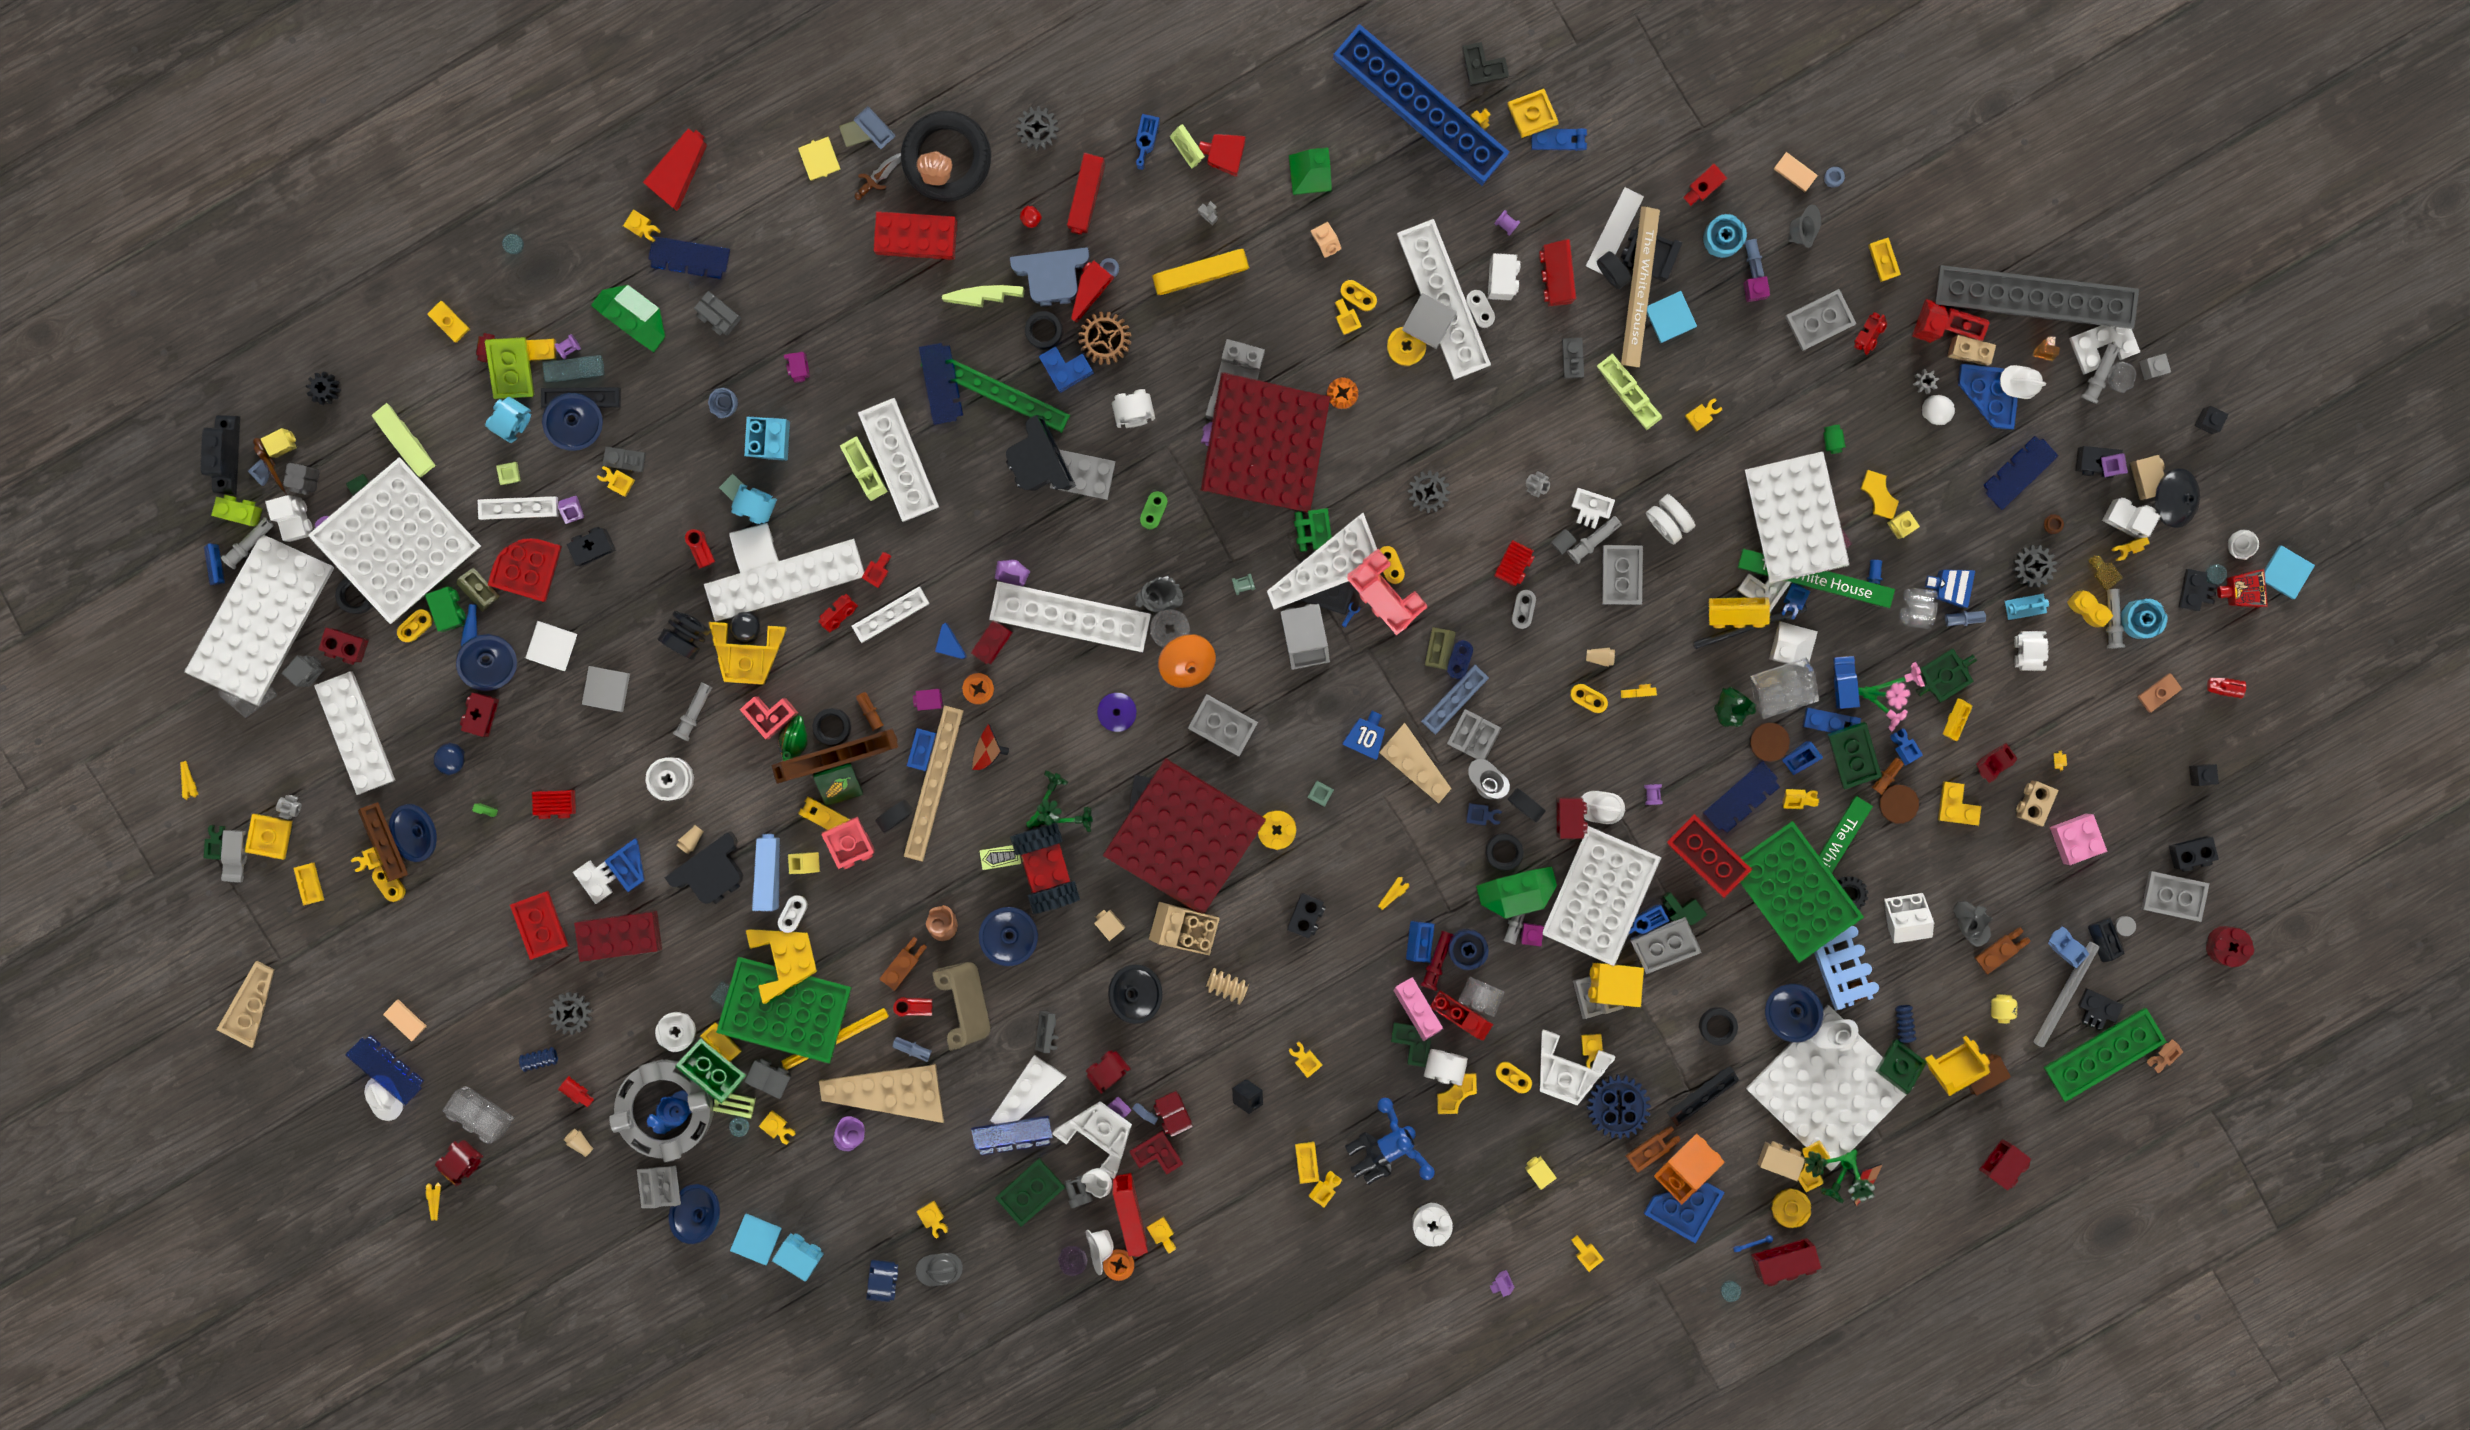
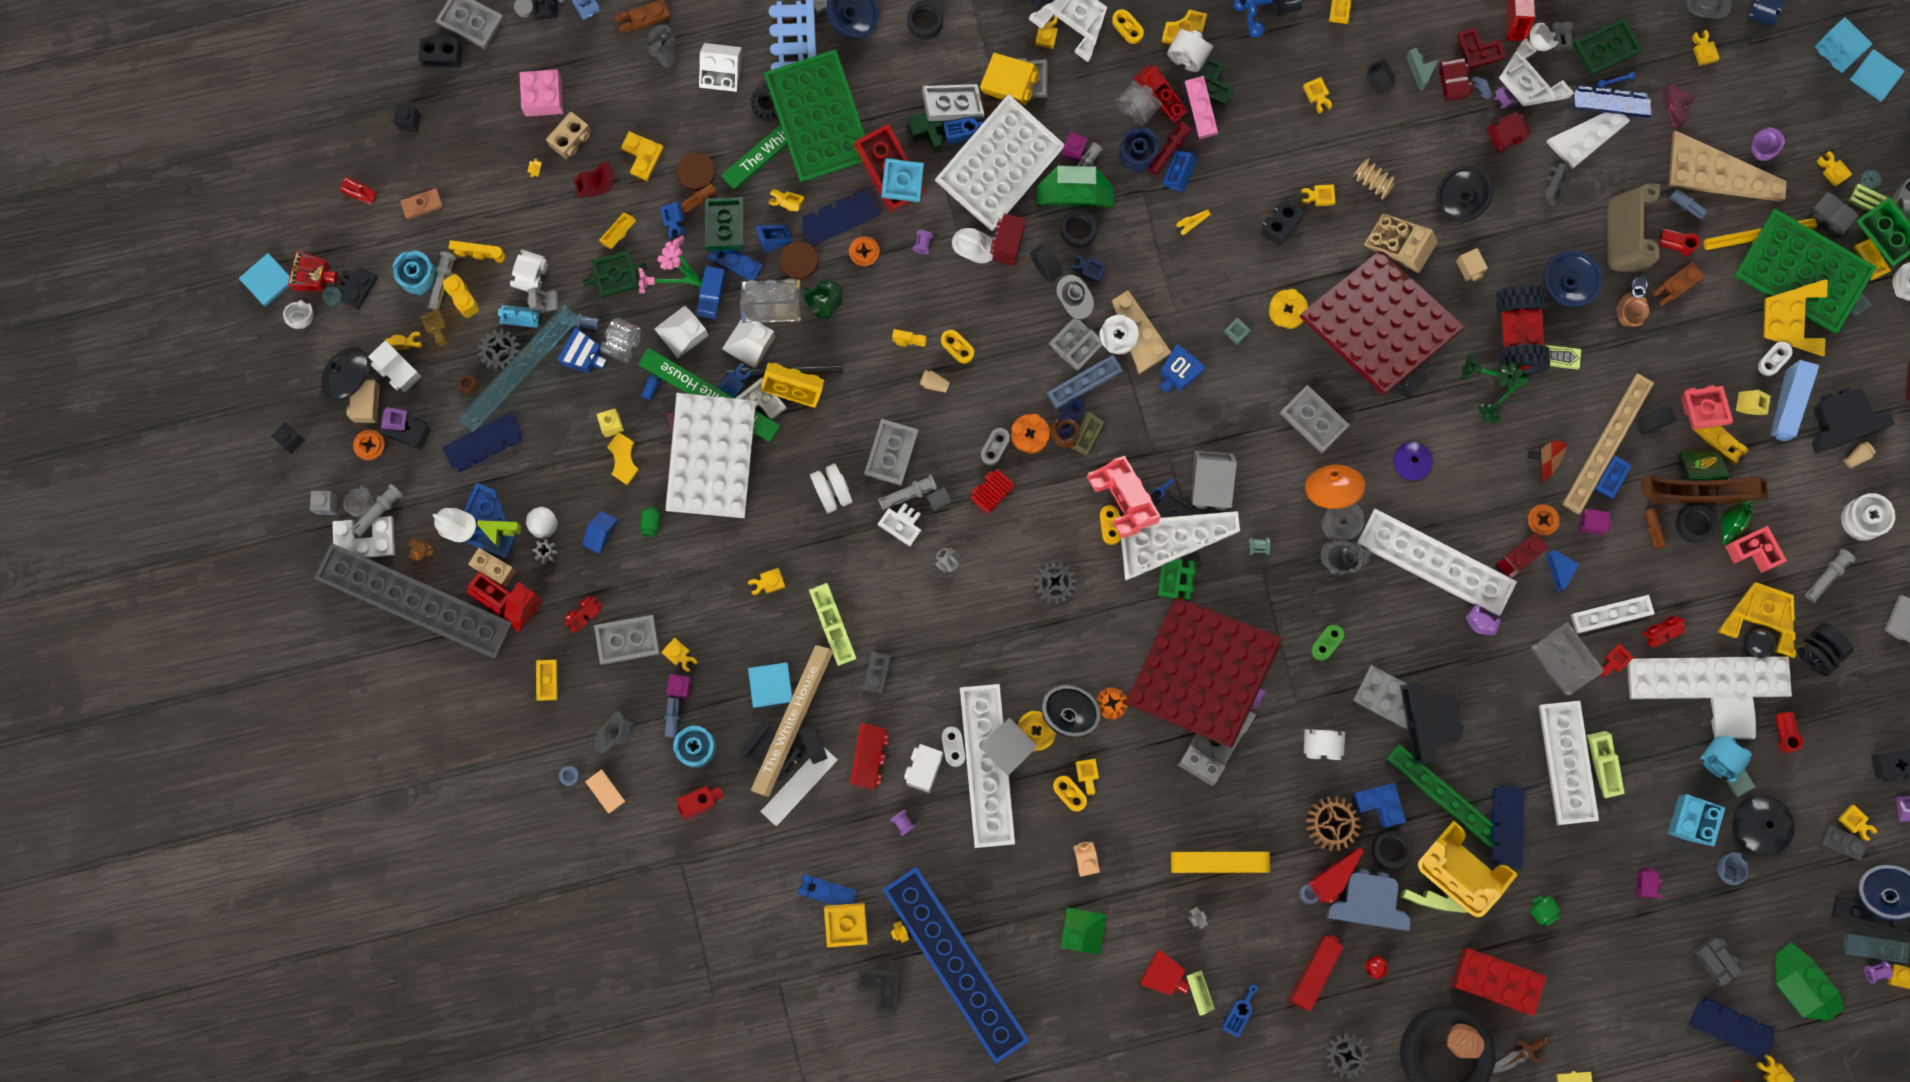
camera: 160 degrees left, 10 degrees down
(715, 456) = (1751, 827): none -> black dish
(888, 314) = (1545, 910): none -> green head
(924, 556) = (1567, 659): none -> clear brick
(942, 948) = (1639, 285): none -> sand blue axle
(950, 1154) = (1675, 102): none -> clear pink slope
(972, 324) = (1463, 874): none -> yellow windscreen
(998, 1170) = (1602, 83): none -> blue hinge
(1207, 1111) = (1420, 70): none -> sand green slope
(1274, 955) = (1322, 195): none -> yellow plate
(1376, 381) = (1074, 704): none -> black dish
(1430, 764) = (1110, 328): none -> white plate
(1470, 645) = (1056, 426): none -> reddish brown piece
(1482, 632) = (1041, 434): none -> orange plate
(1693, 845) = (902, 180): none -> medium azure tile
(1716, 773) = (870, 245): none -> orange gear
(1768, 322) = (678, 653): none -> yellow plate
(1862, 637) = (681, 331): none -> white slope
(1879, 417) = (599, 532): none -> blue slope
(1981, 385) = (494, 529): none -> lime slope
(2008, 627) = (542, 301): none -> light grey bracket
(2009, 552) = (518, 368): none -> clear light blue plate
(2087, 658) = (478, 251): none -> yellow plate
(2134, 429) = (364, 438): none -> orange gear

